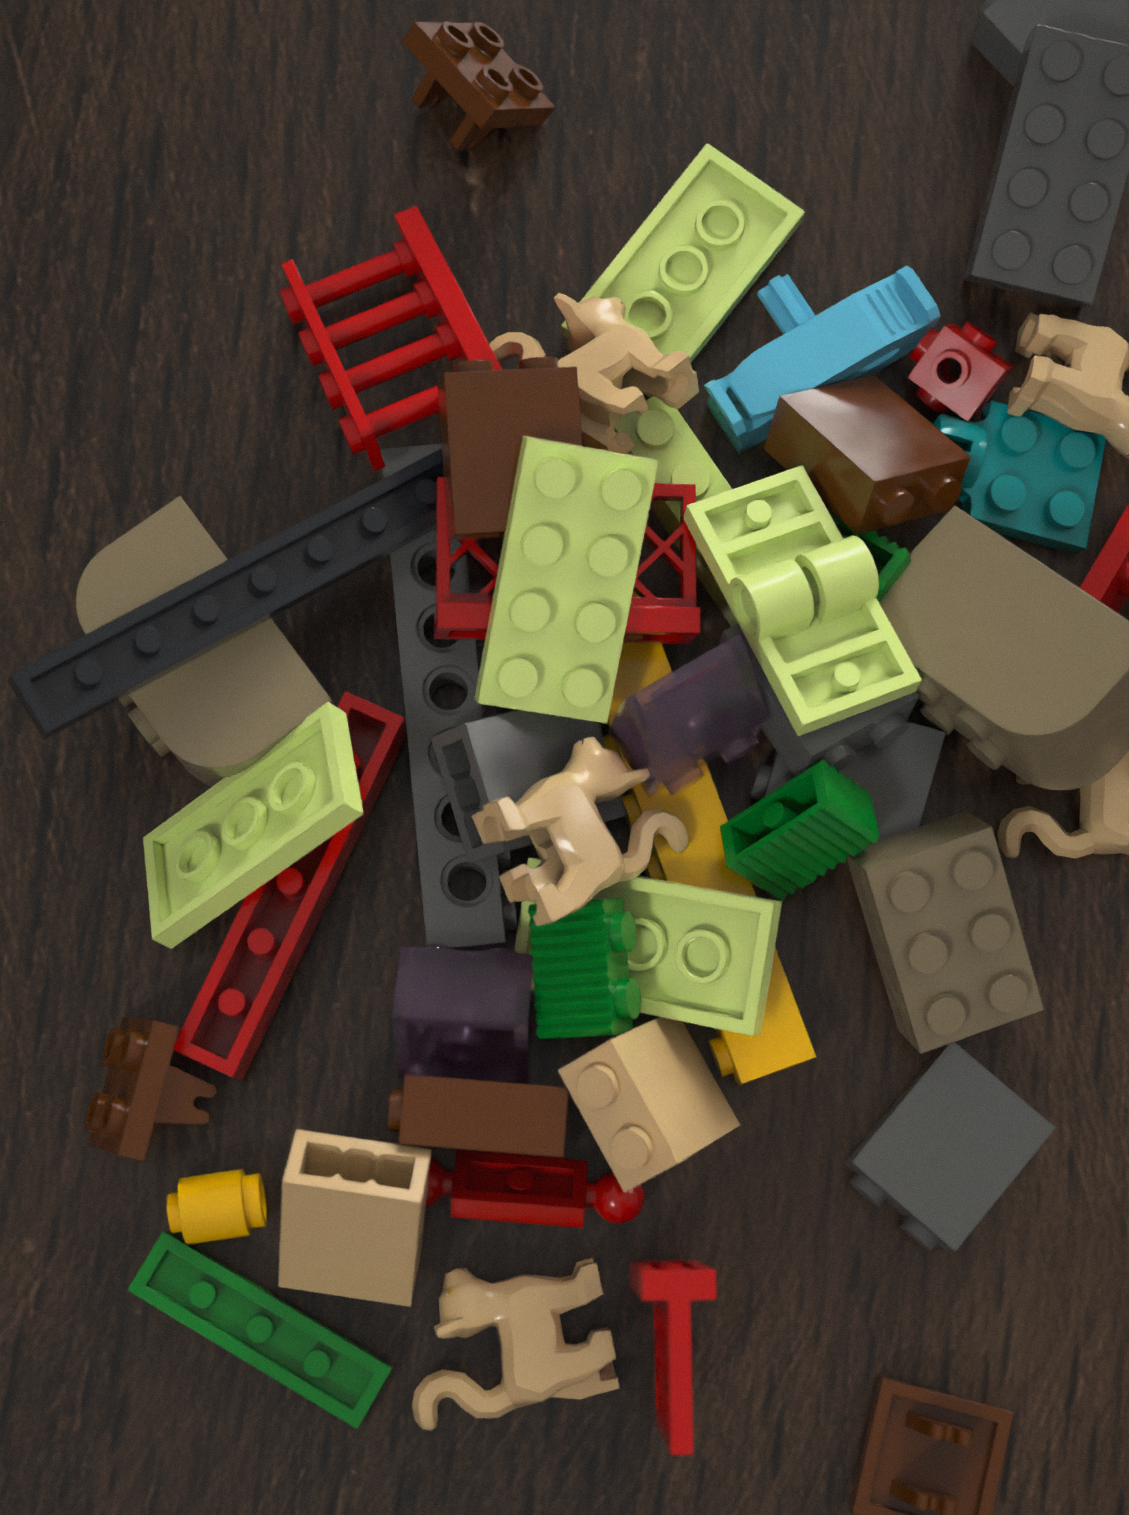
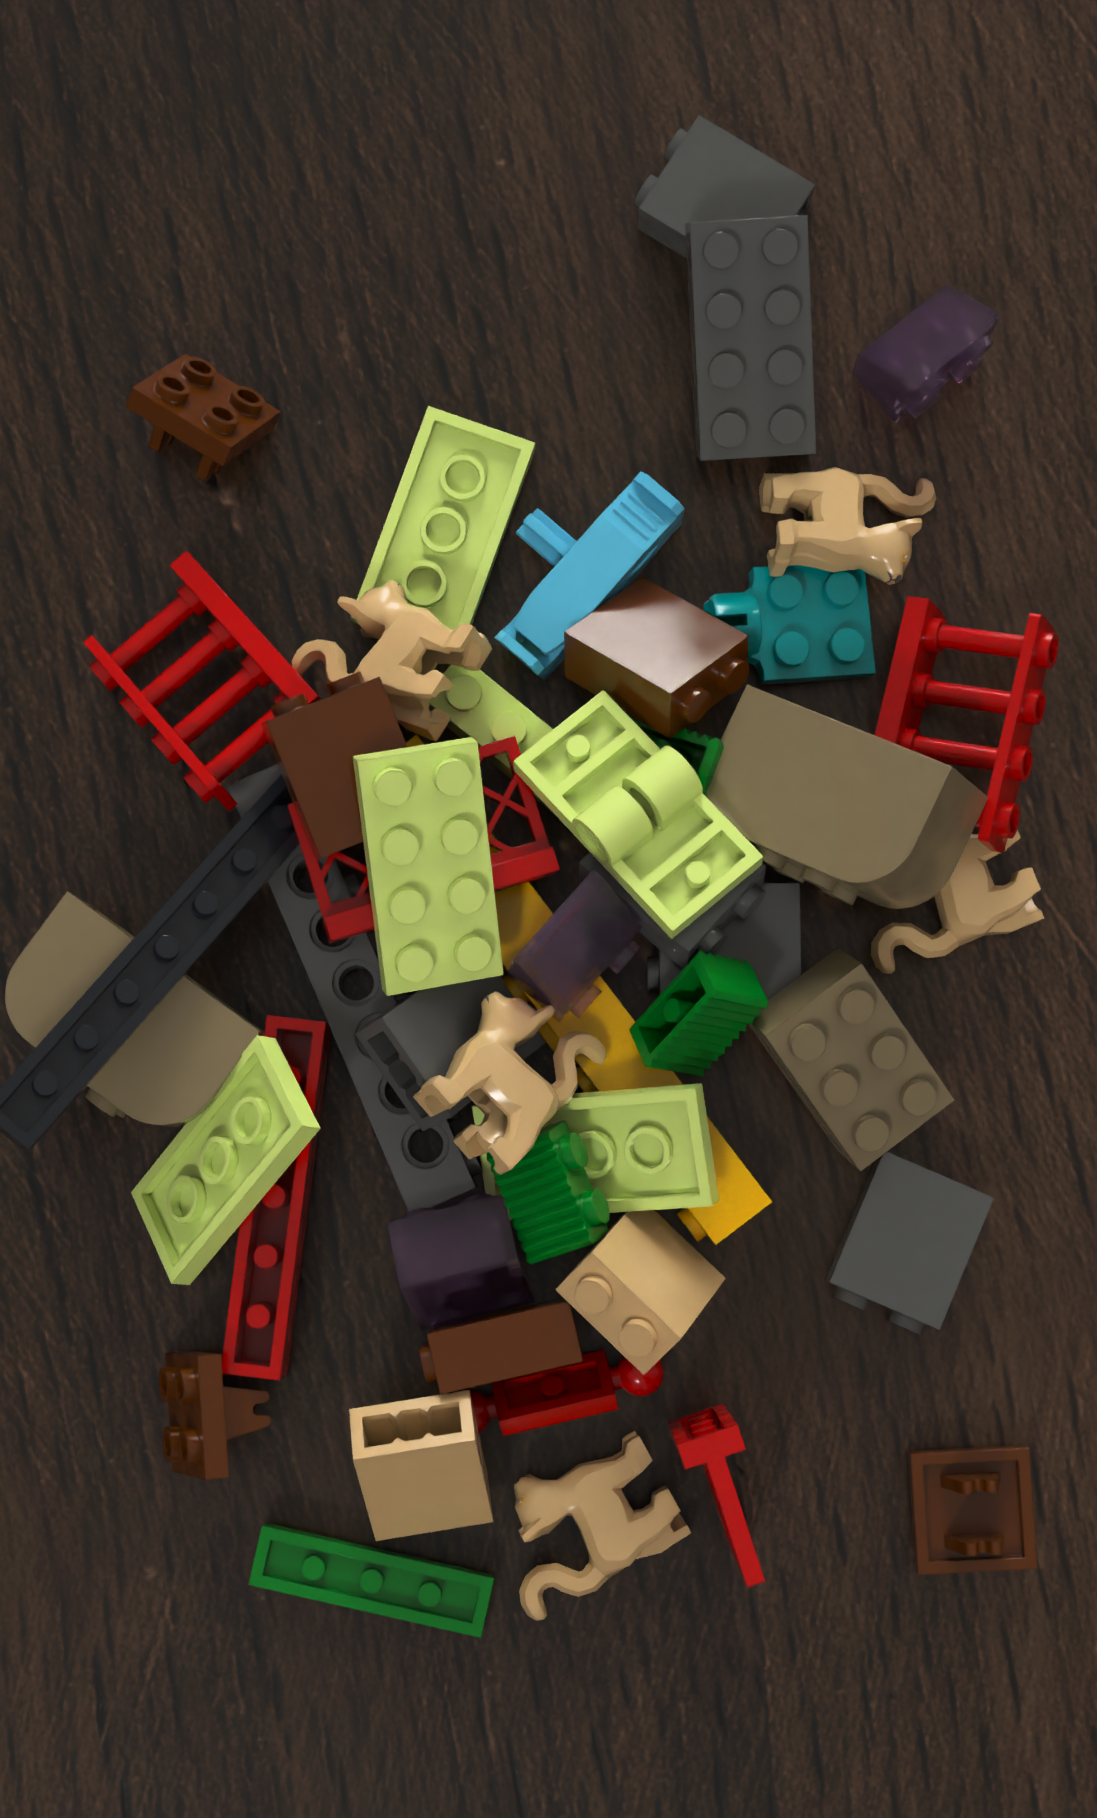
camera: 10 degrees left, 5 degrees up
(217, 1206) = (301, 1489): yellow brick -> none
(980, 375) = (715, 548): red brick -> none

